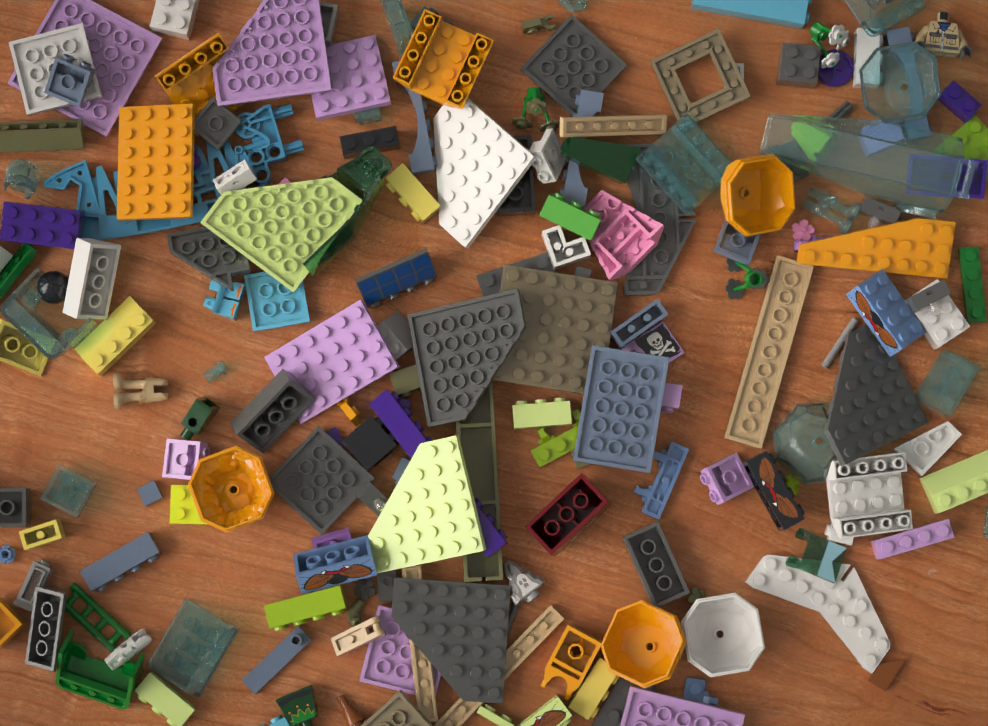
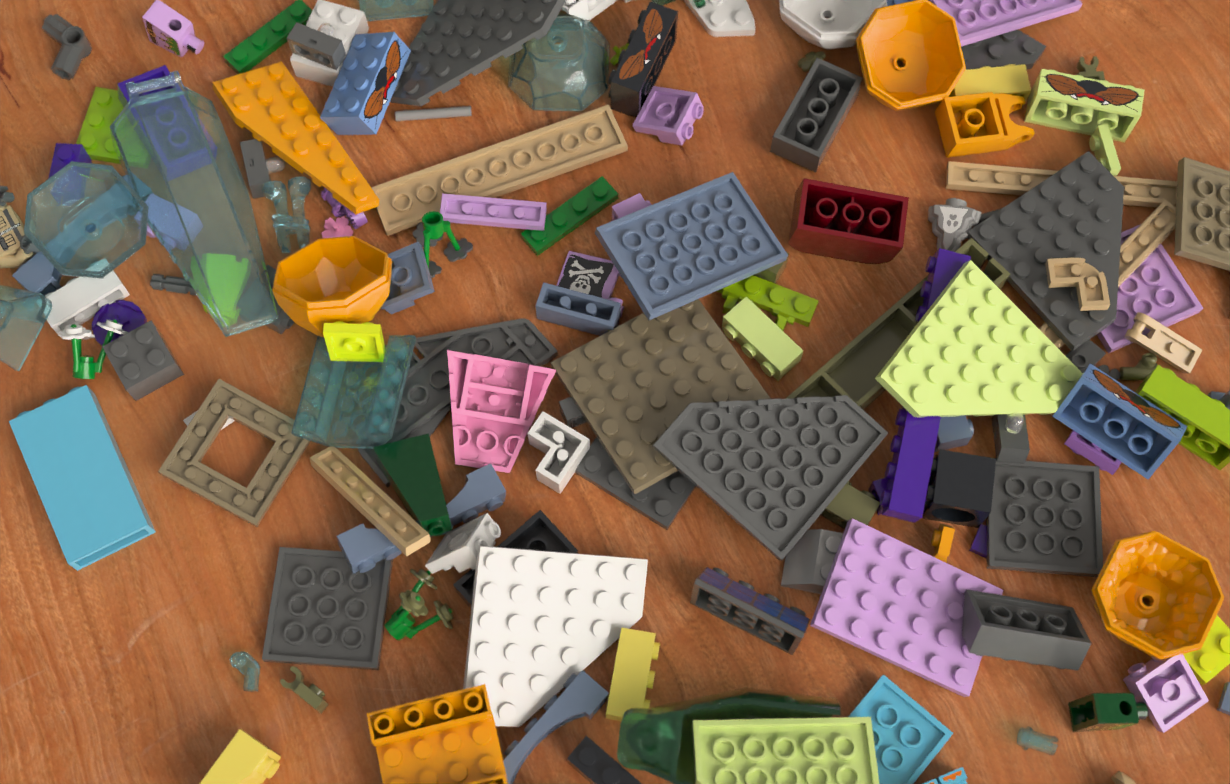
camera: 125 degrees left, 15 degrees down
(429, 616) = (1089, 282): none -> tan plate
(571, 215) = (515, 465): bright green brick -> none
(658, 494) = (746, 166): medium blue hinge -> none
(704, 185) = (354, 341): none -> neon yellow plate
(706, 370) = (571, 215): none -> green plate
(739, 323) = (493, 212): none -> lavender plate
(915, 211) = (229, 126): clear light blue tile -> none

